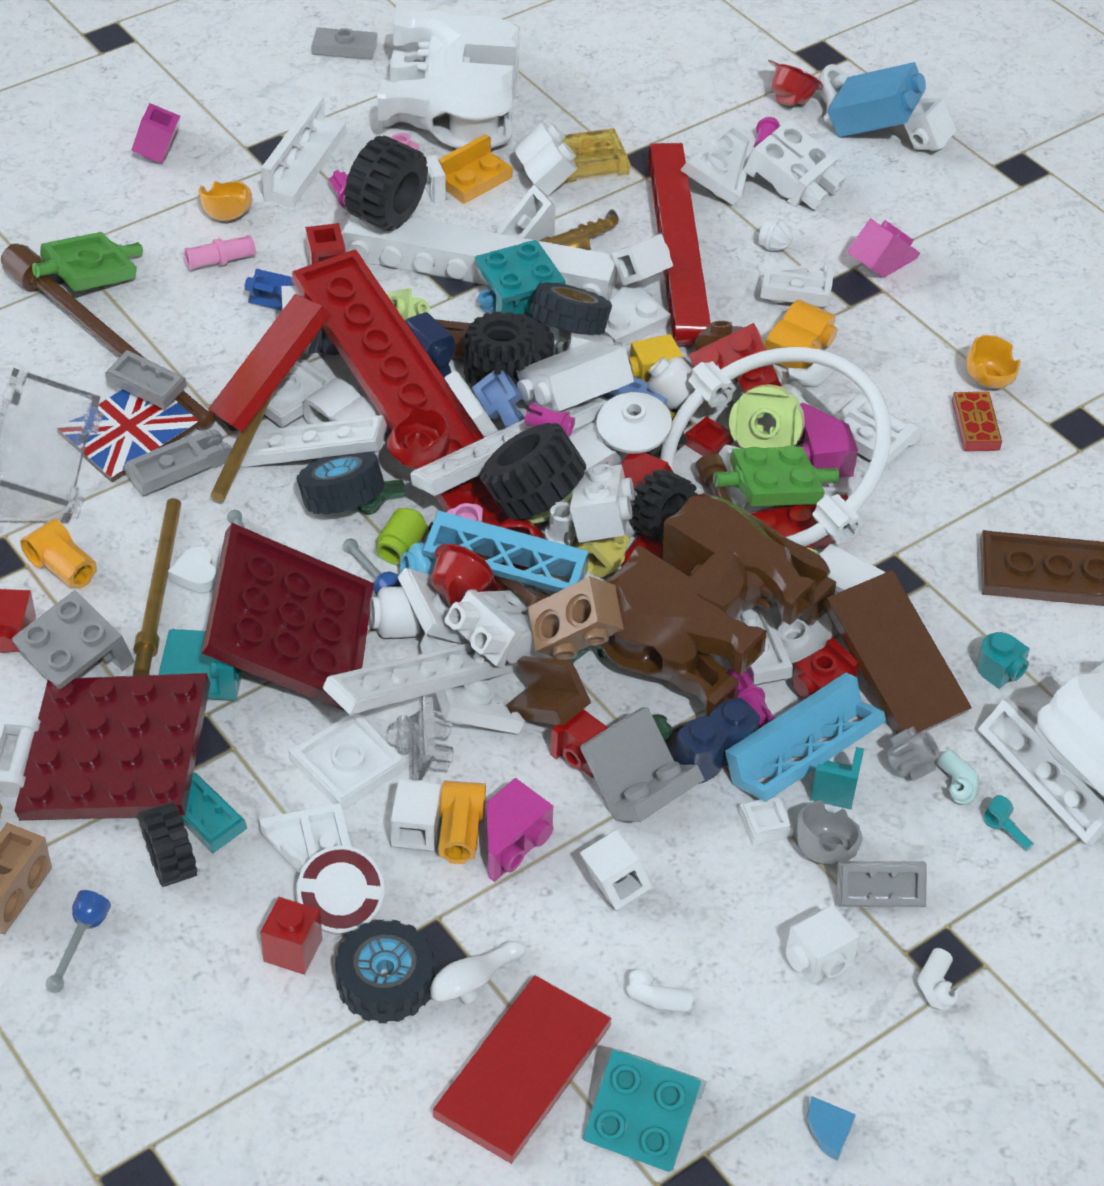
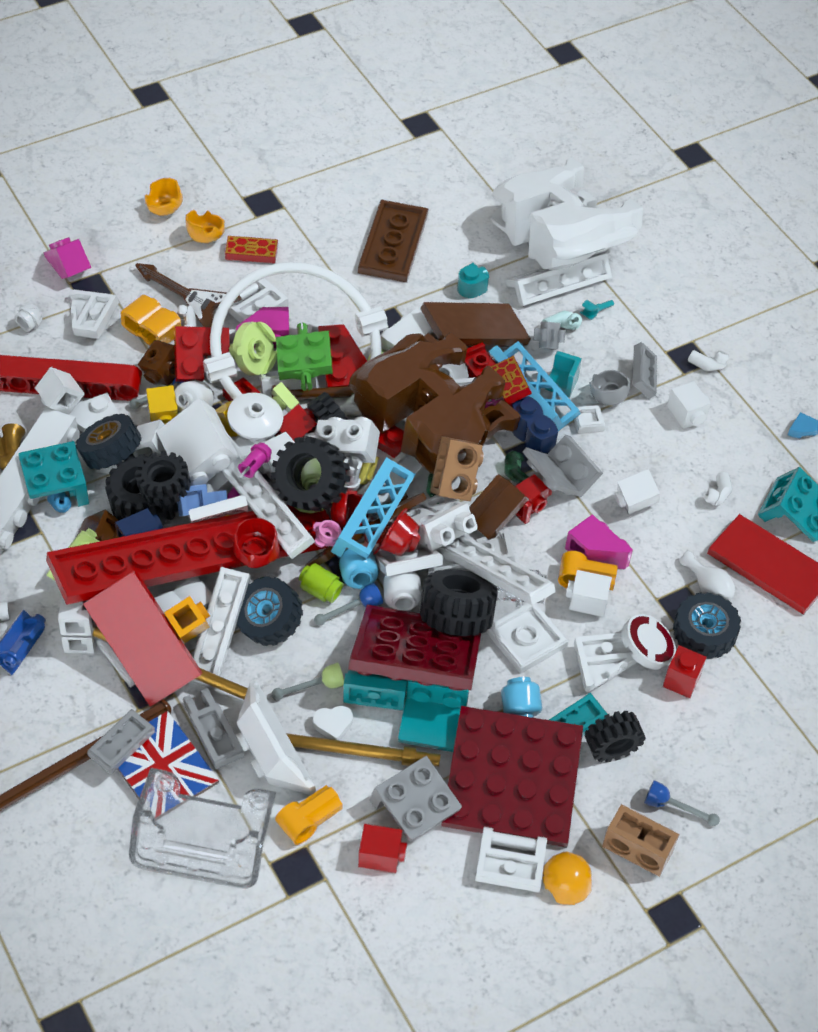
camera: 85 degrees left, 5 degrees up
(146, 496) = (270, 744): none -> white wedge
(232, 748) = (521, 697): none -> medium azure head
(298, 394) = (188, 619): none -> light orange brick
(365, 638) = (458, 602): none -> black tyre
(680, 451) = (284, 397): none -> yellowish green plate
(781, 689) = (515, 383): none -> red tile
(842, 384) = (202, 301): none -> piece
(1030, 323) = (164, 197): none -> light orange hair

